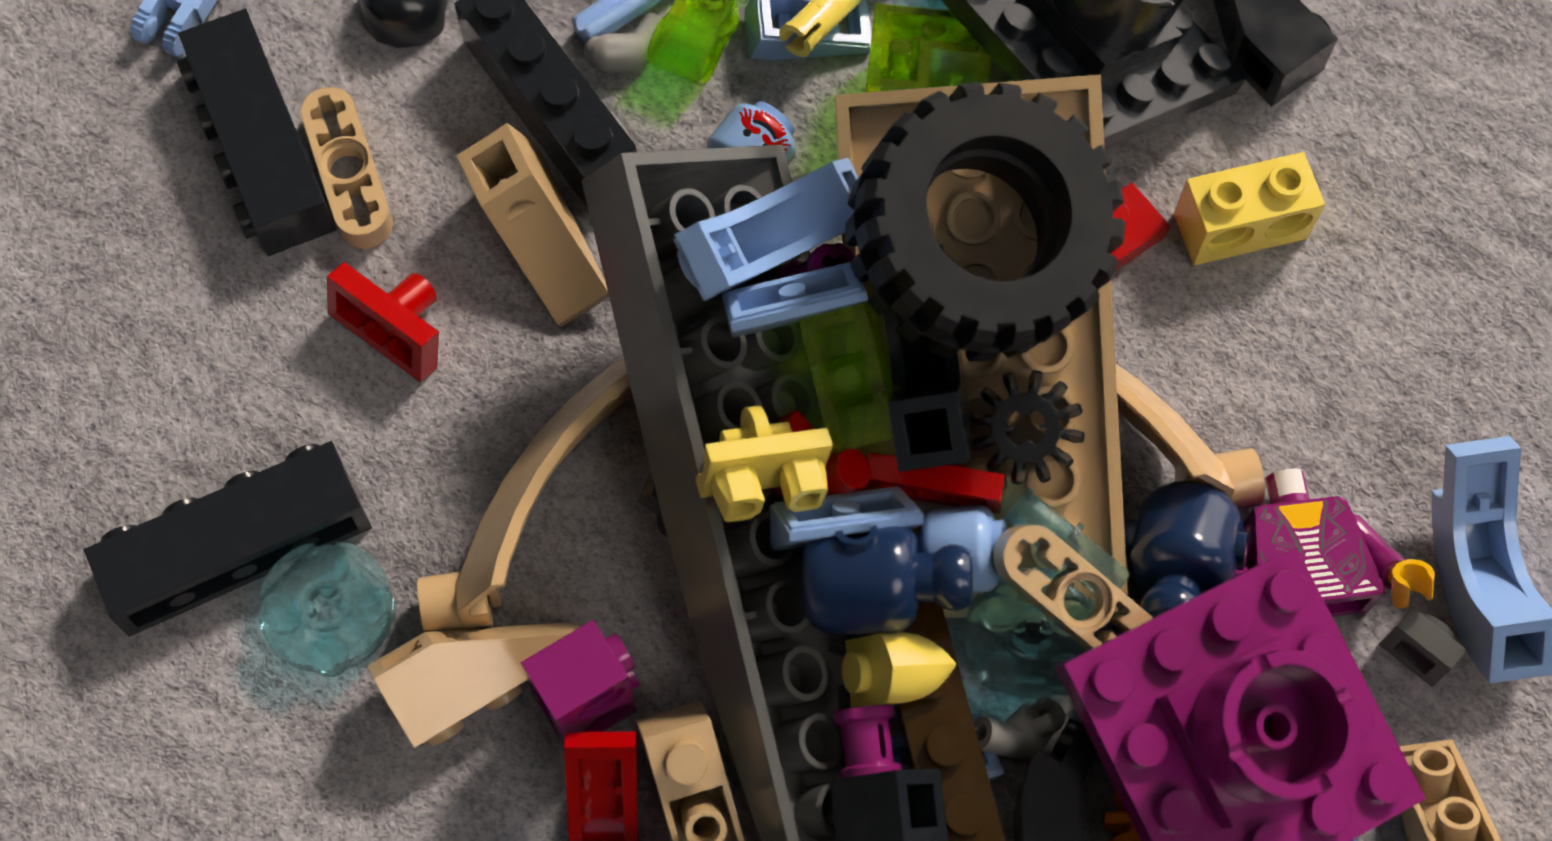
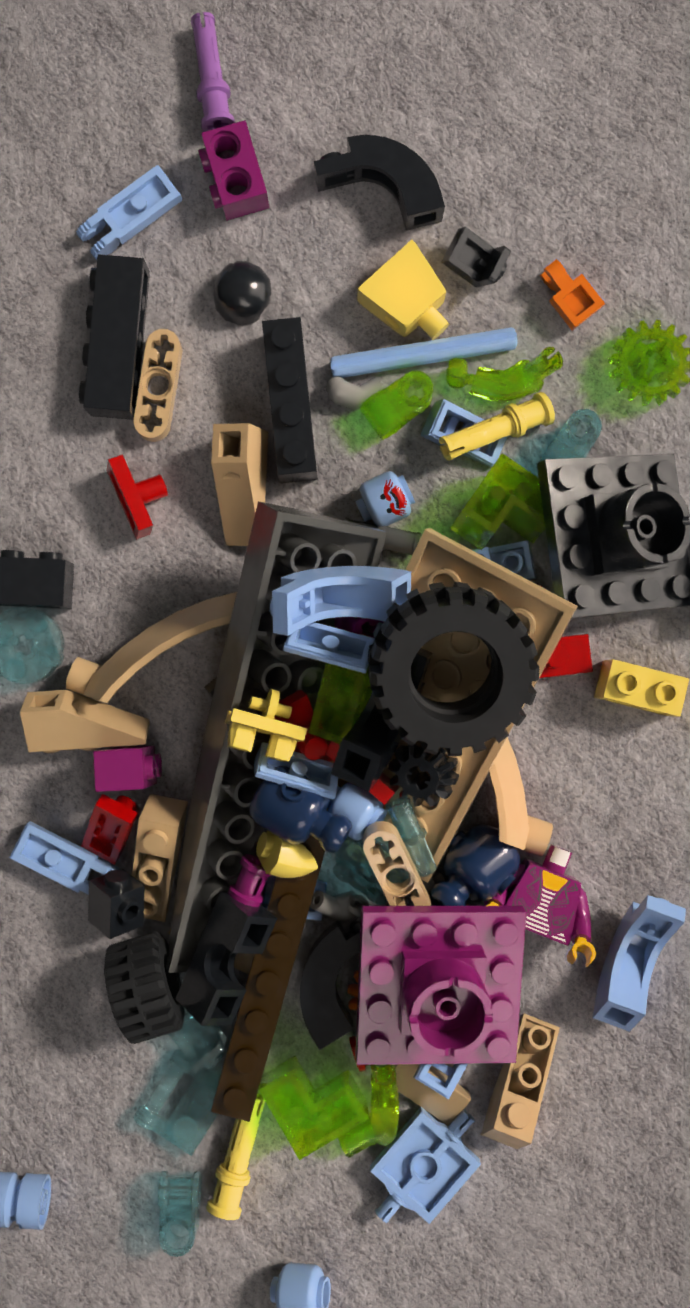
camera: 30 degrees right, 20 degrees up
(1423, 645) = (575, 978): dark grey plate -> none

